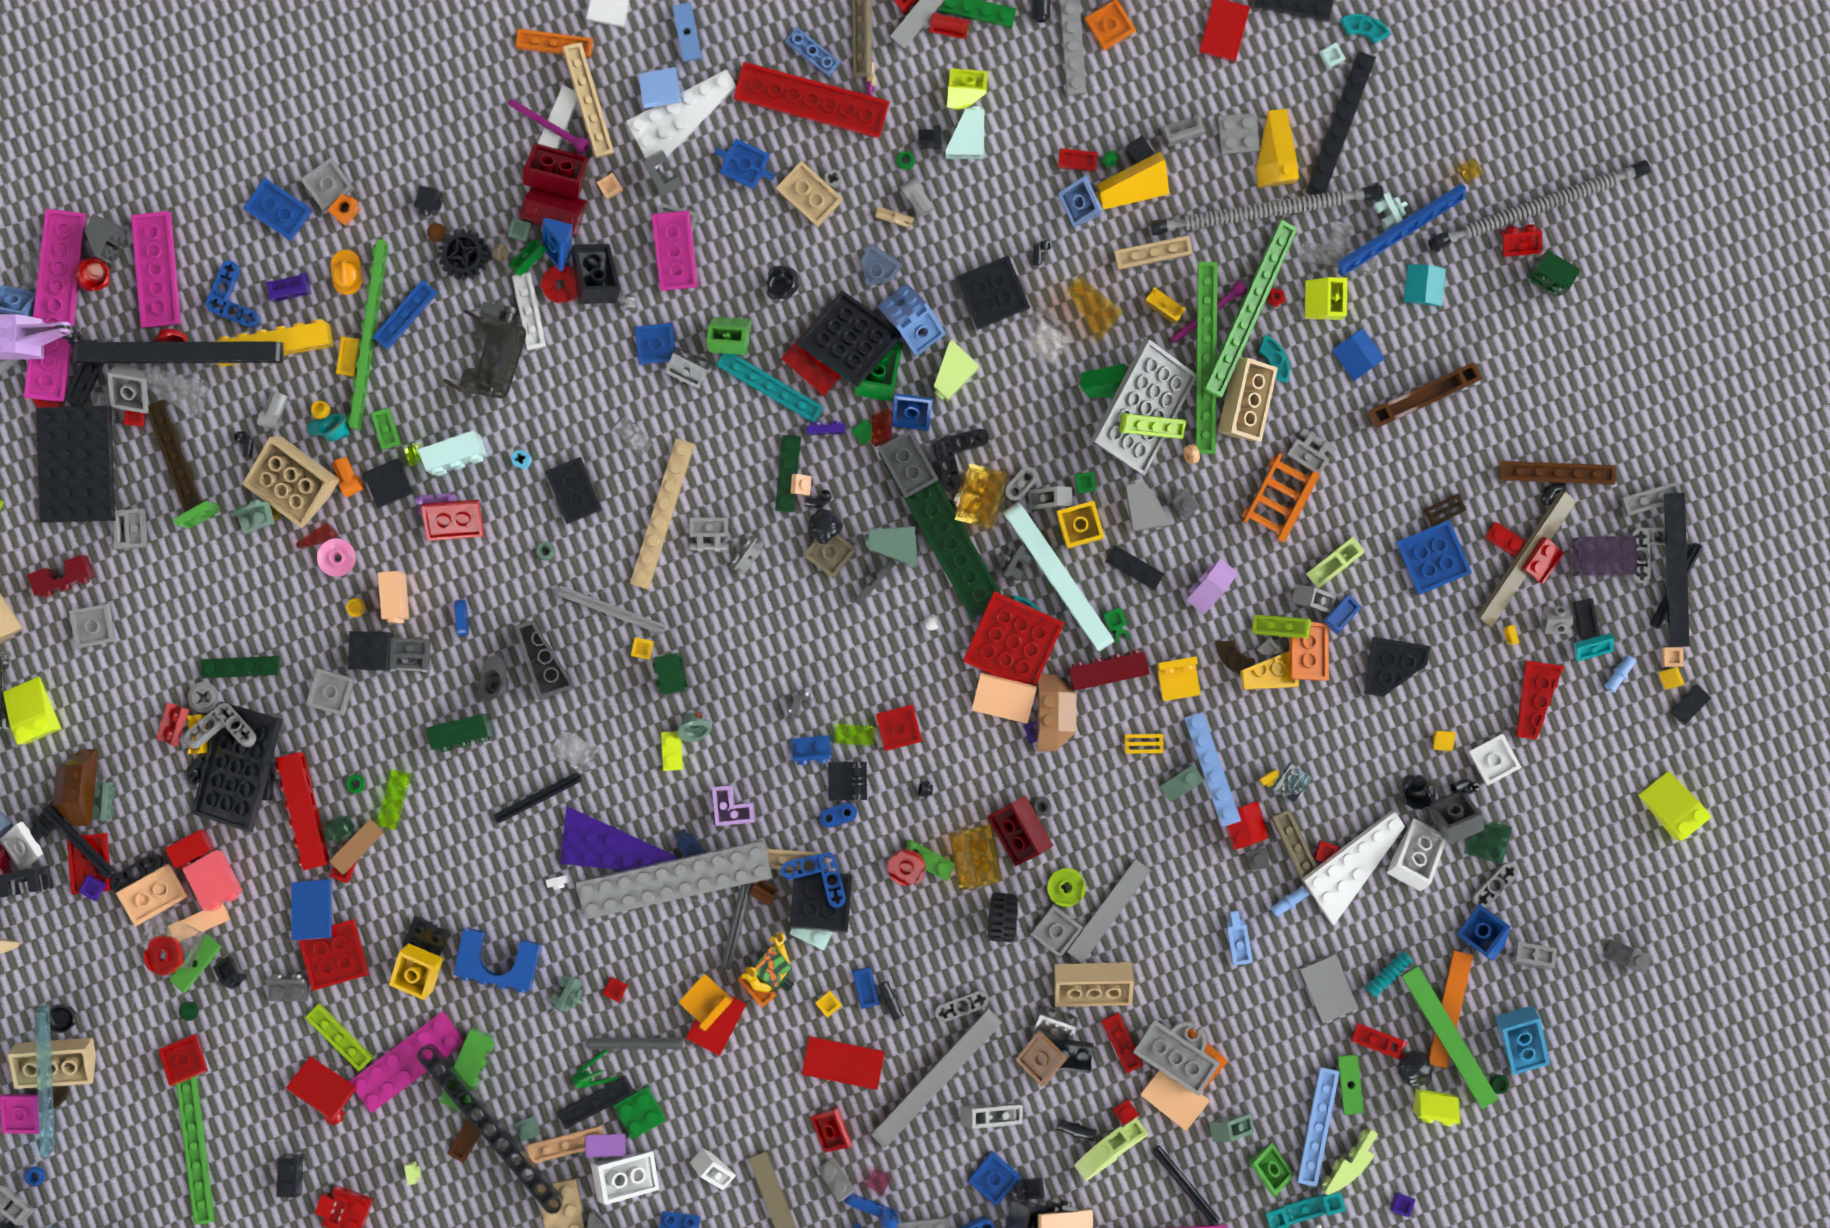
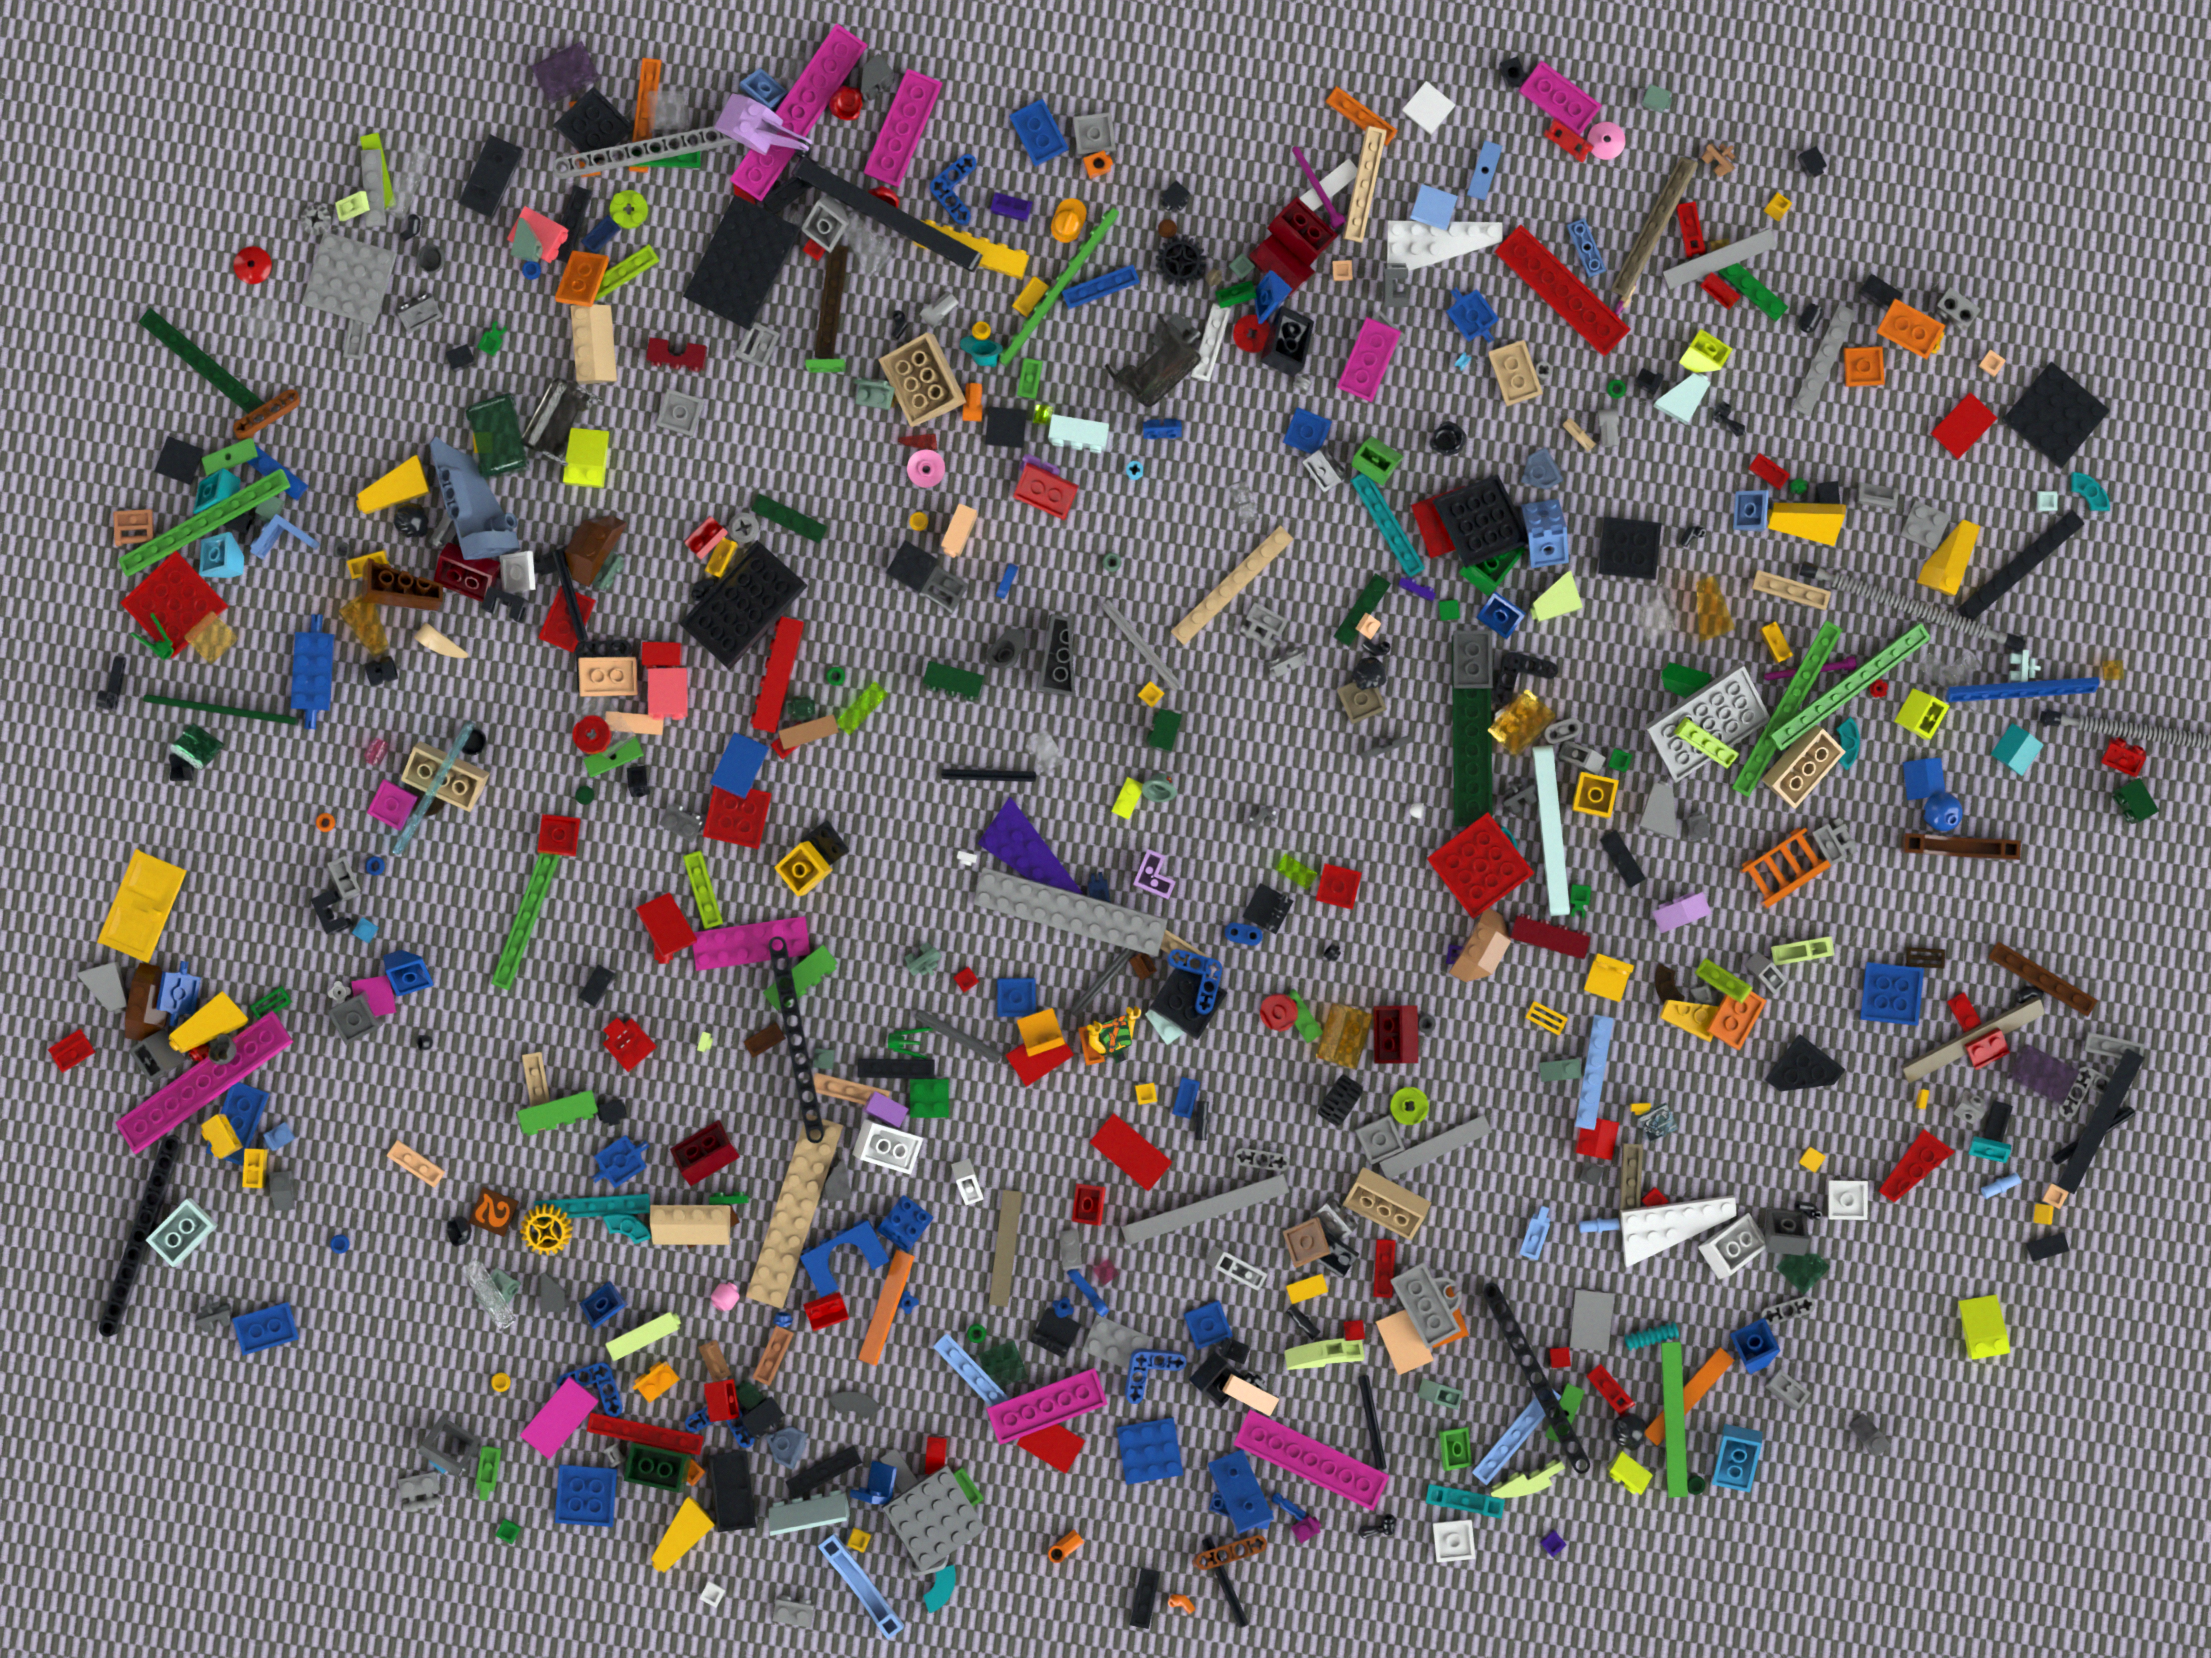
camera: 30 degrees right, 0 degrees up
(92, 888) = (560, 642): dark purple tile -> none
(219, 722) = (750, 558): light grey beam -> none
(330, 691) = (857, 583): light grey plate -> none
(470, 964) = (889, 922): blue arch -> none
(534, 406) = (1170, 429): none -> blue hinge
(573, 490) = (1165, 522): black plate -> none
(668, 980) = (1016, 997): none -> blue tile
(758, 208) = (1462, 361): none -> medium azure bush
(811, 748) = (1251, 863): blue bracket -> none
(881, 427) = (1467, 614): clear red plate -> none
(894, 544) = (1422, 723): sand green slope -> none
(1004, 698) = (1445, 910): light nougat tile -> none
(1009, 126) = (1724, 410): none -> black piece
(1064, 1098) = (1307, 1288): none -> yellow tile
(1191, 454) = (1727, 786): light nougat tile -> none
(1314, 1076) = (1537, 1387): none -> black beam
(1319, 1036) = (1560, 1357): none -> red tile
(1342, 614) = (1783, 999): blue tile -> none
(1392, 374) = (1943, 812): none -> blue cylinder
(1418, 792) = (1764, 1191): black hair -> none

